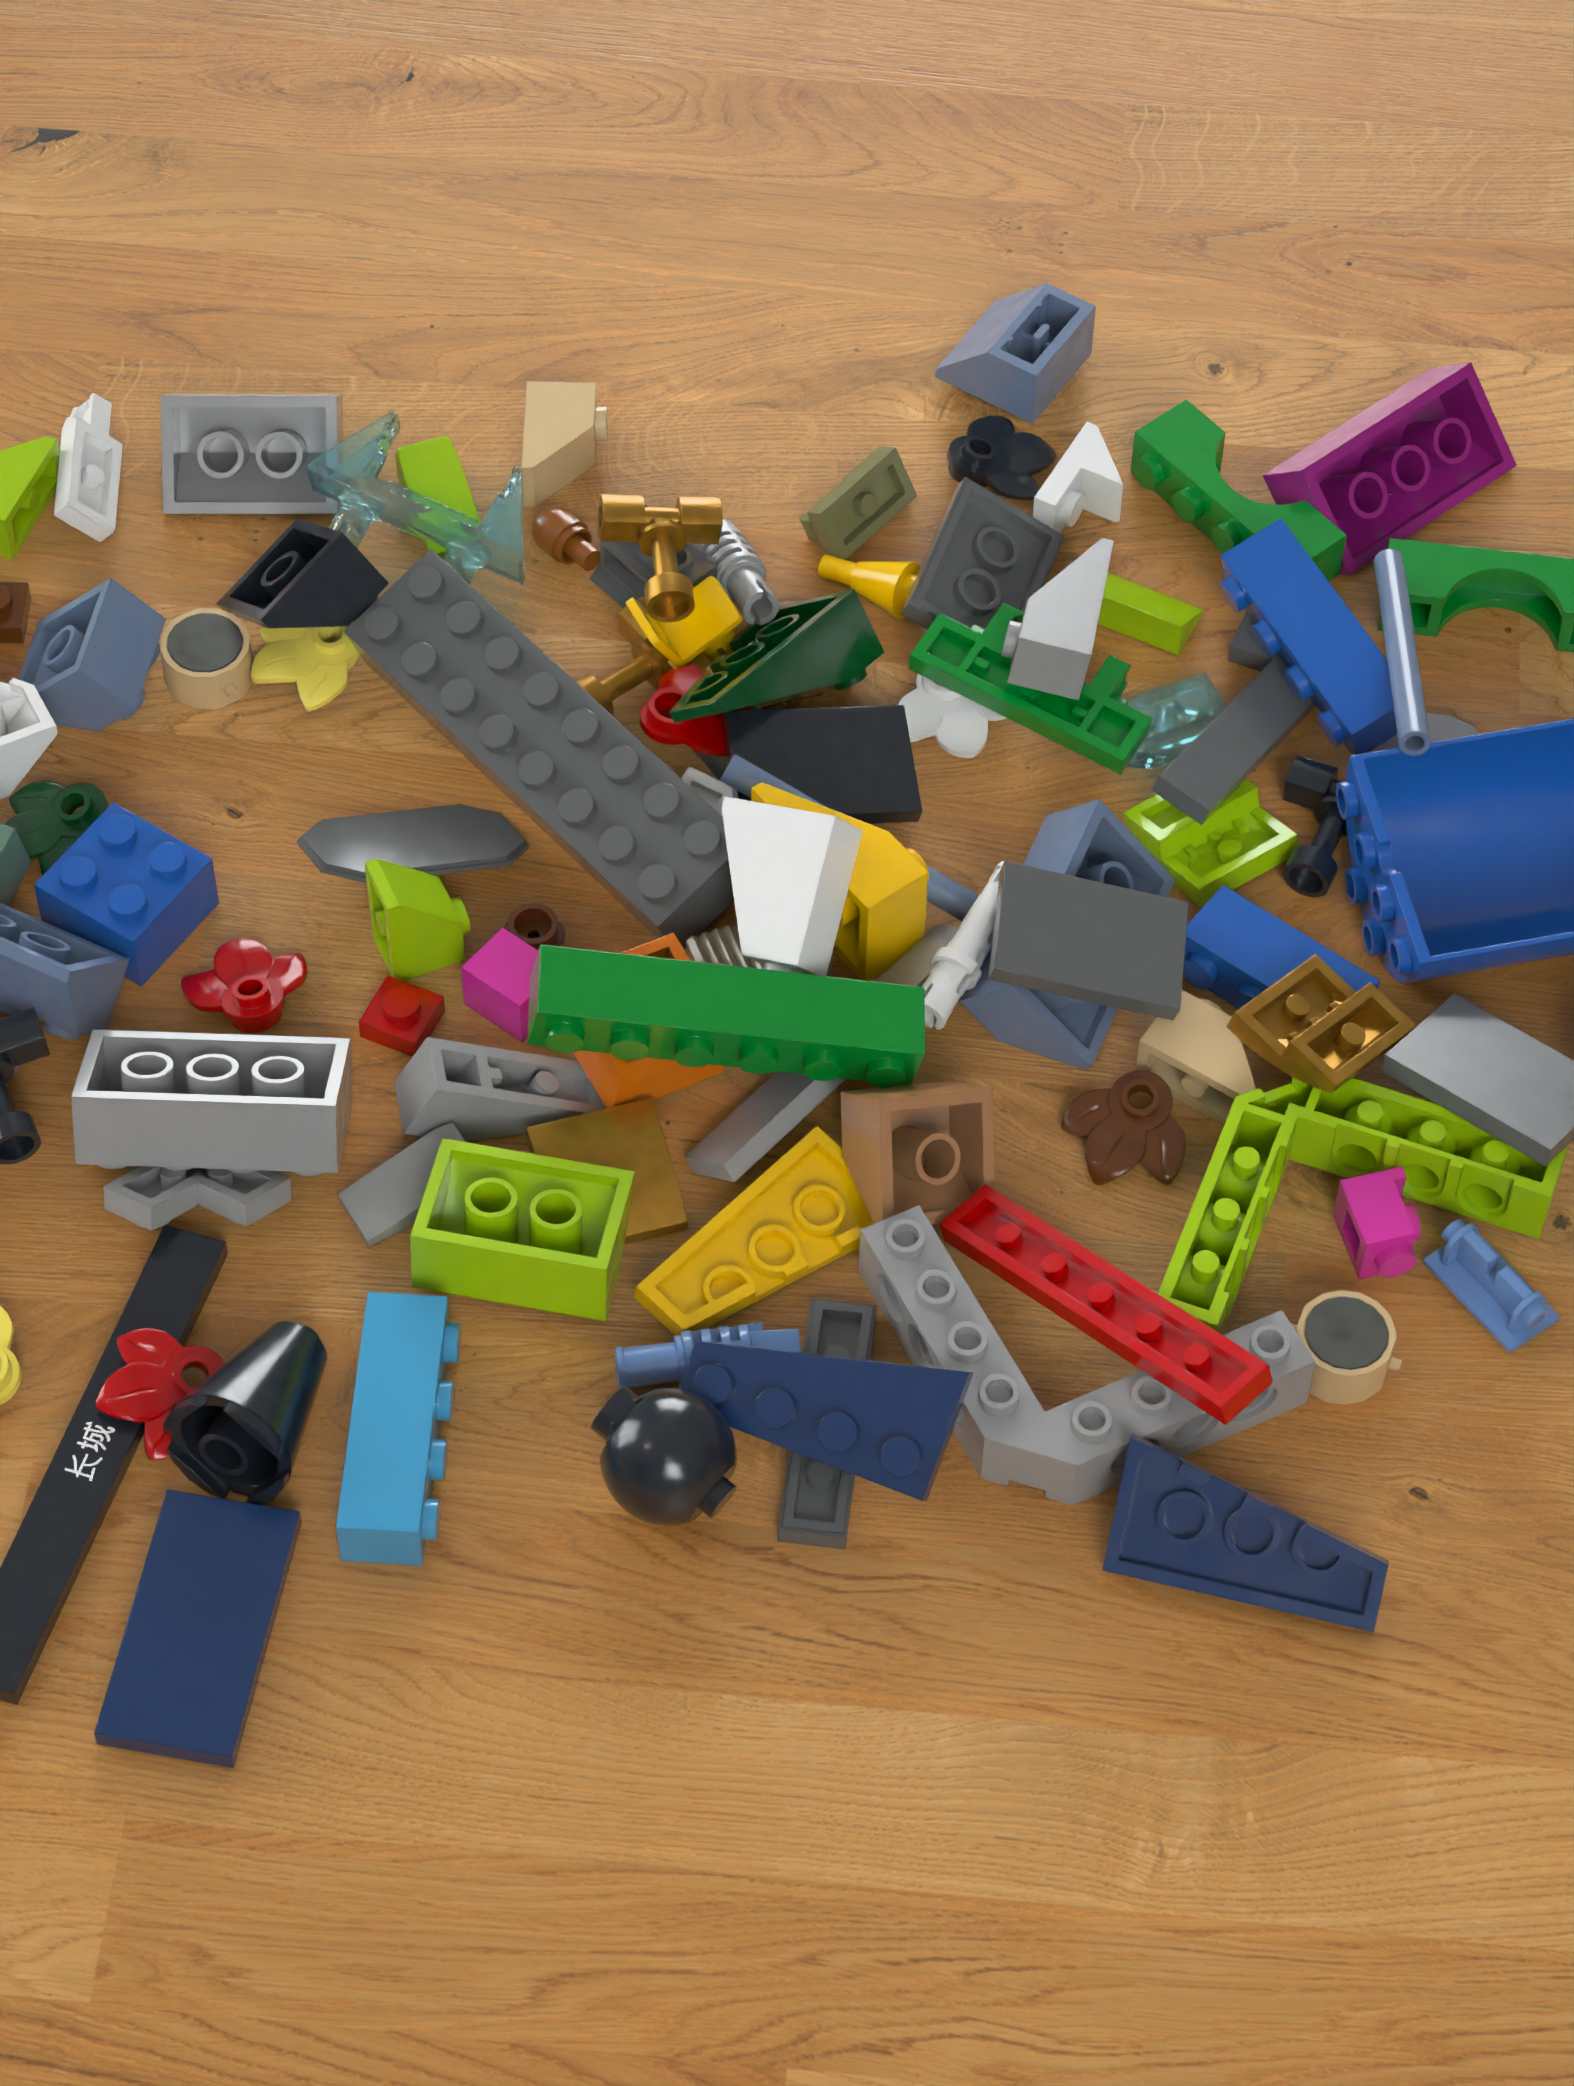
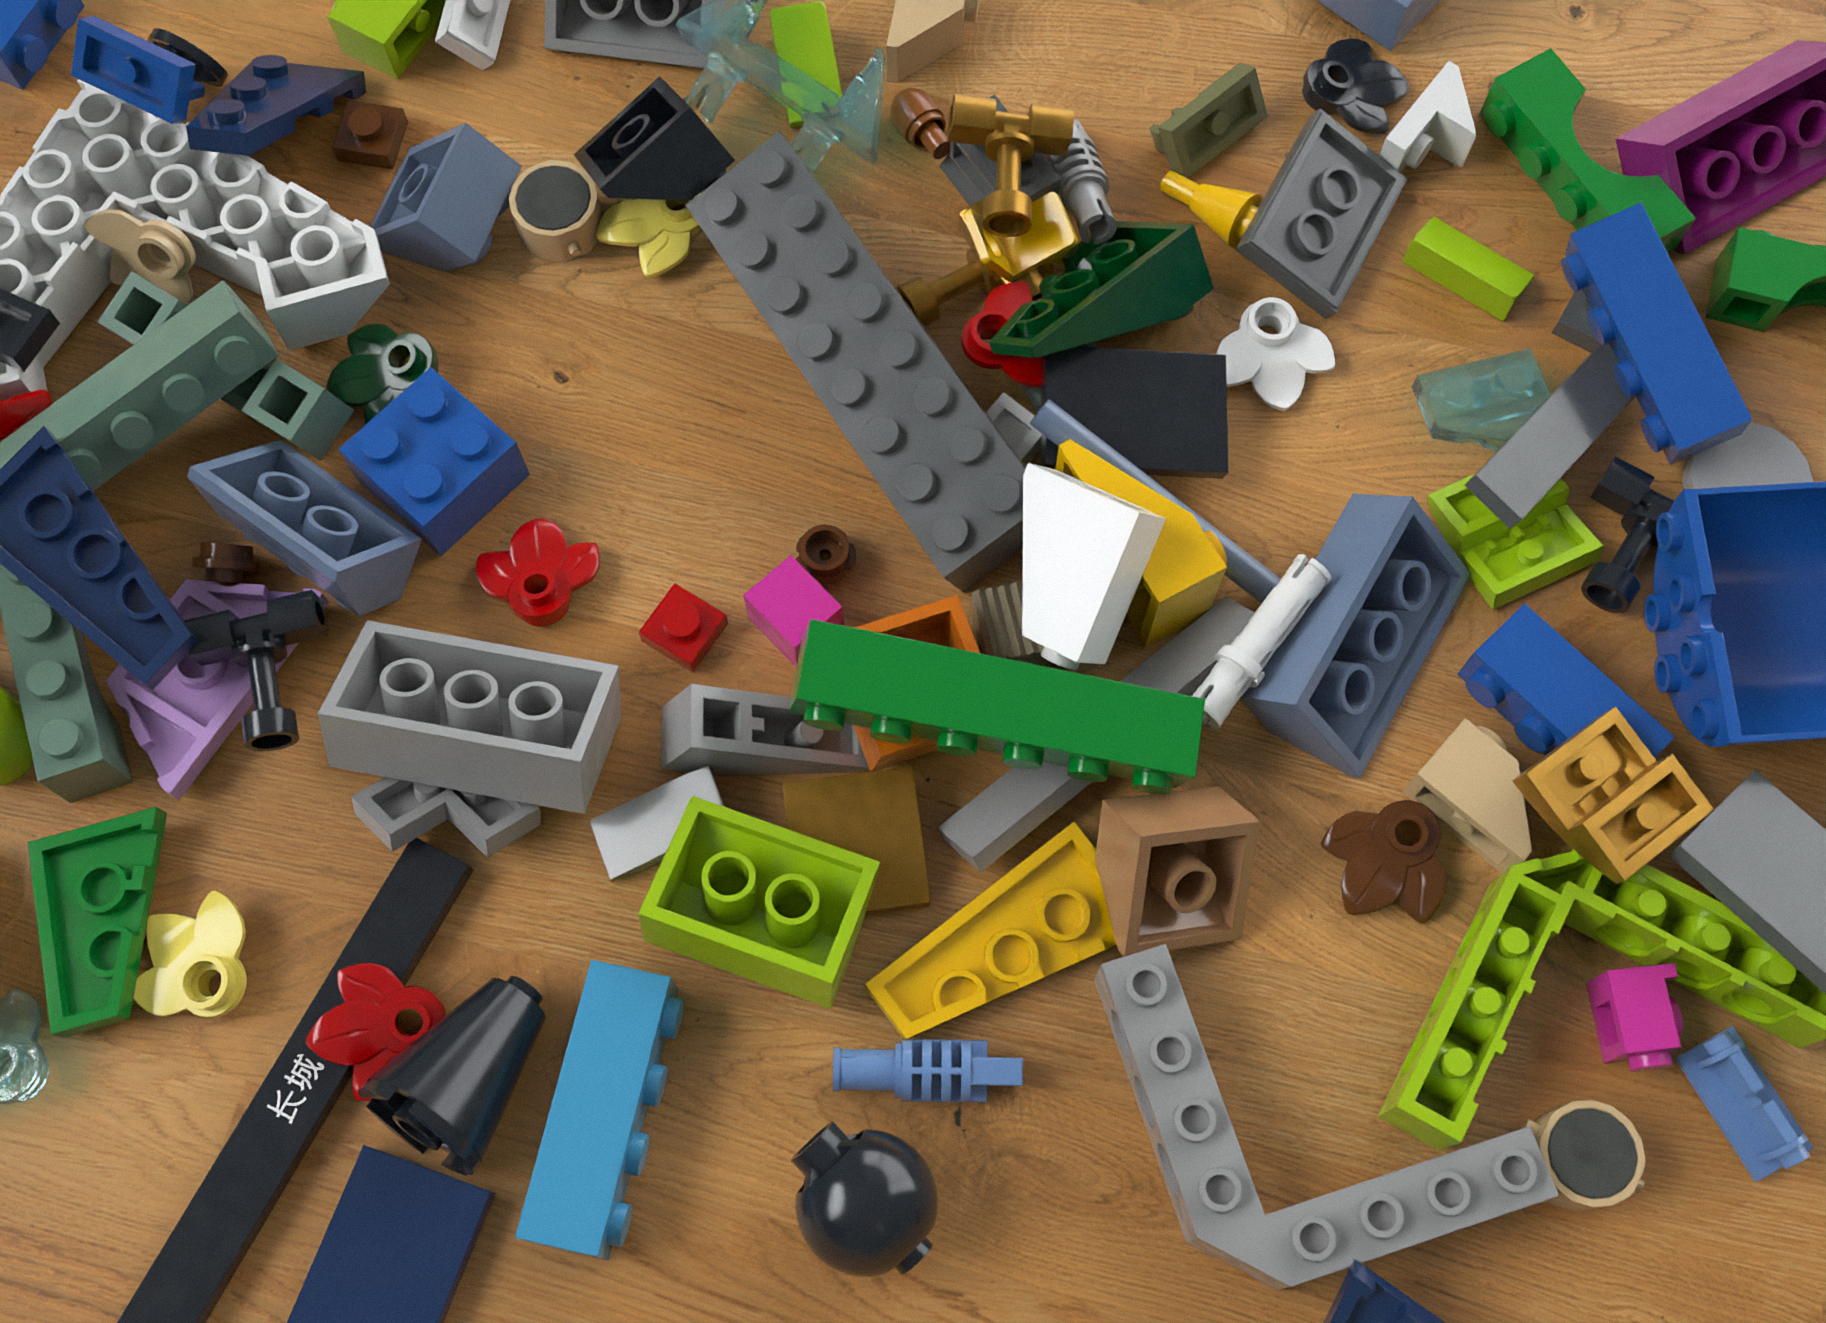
camera: 10 degrees right, 15 degrees up
(414, 920) = (708, 529): lime slope -> none
(422, 839) = (718, 445): dark grey shield -> none
(817, 1494) = (1038, 1161): dark grey tile -> none
(845, 1412) = (1066, 1184): dark blue wing -> none
(972, 665) = (1321, 332): green hinge -> none
(1060, 627) = (1398, 296): slope -> none
(1089, 940) = (1382, 662): dark grey tile -> none
(1107, 1304) = (1352, 1105): red plate -> none
(1401, 653) = (1748, 374): sand blue piece -> none

